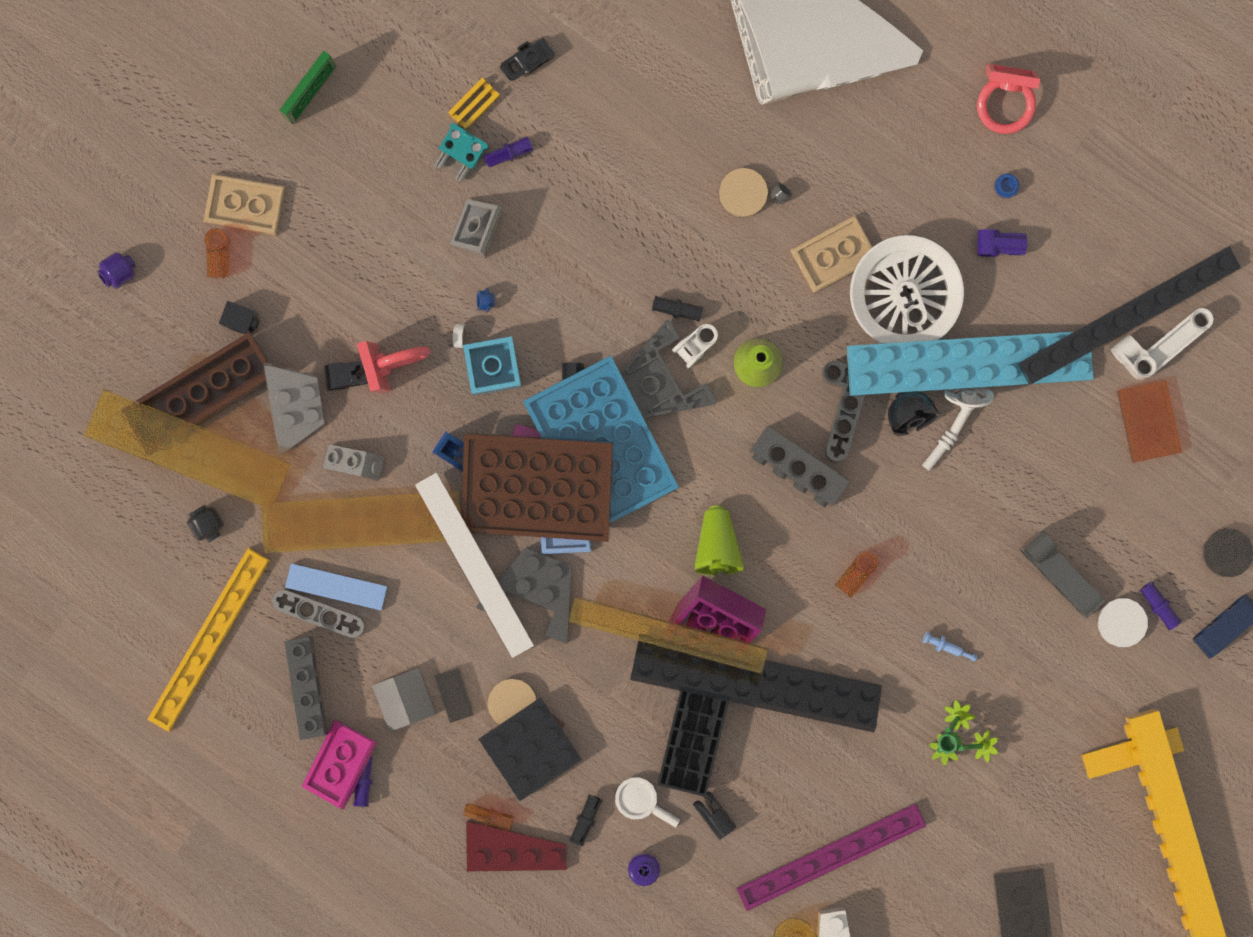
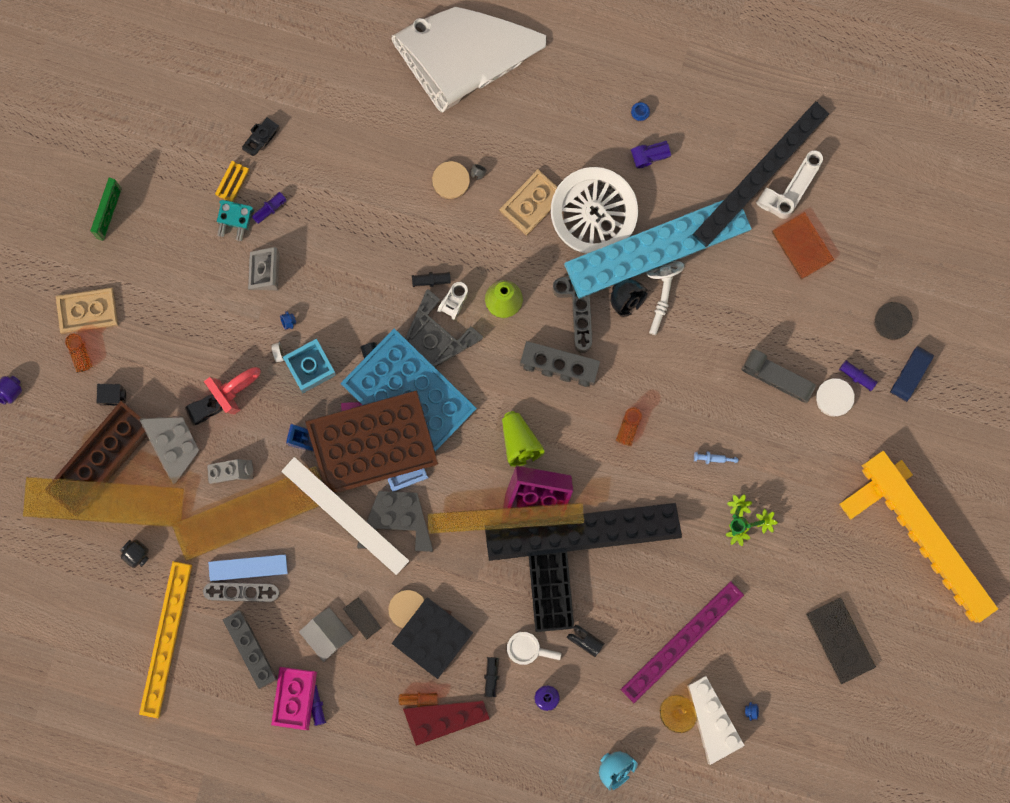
camera: 20 degrees left, 5 degrees down
(1012, 80) = (614, 35): coral tile -> none

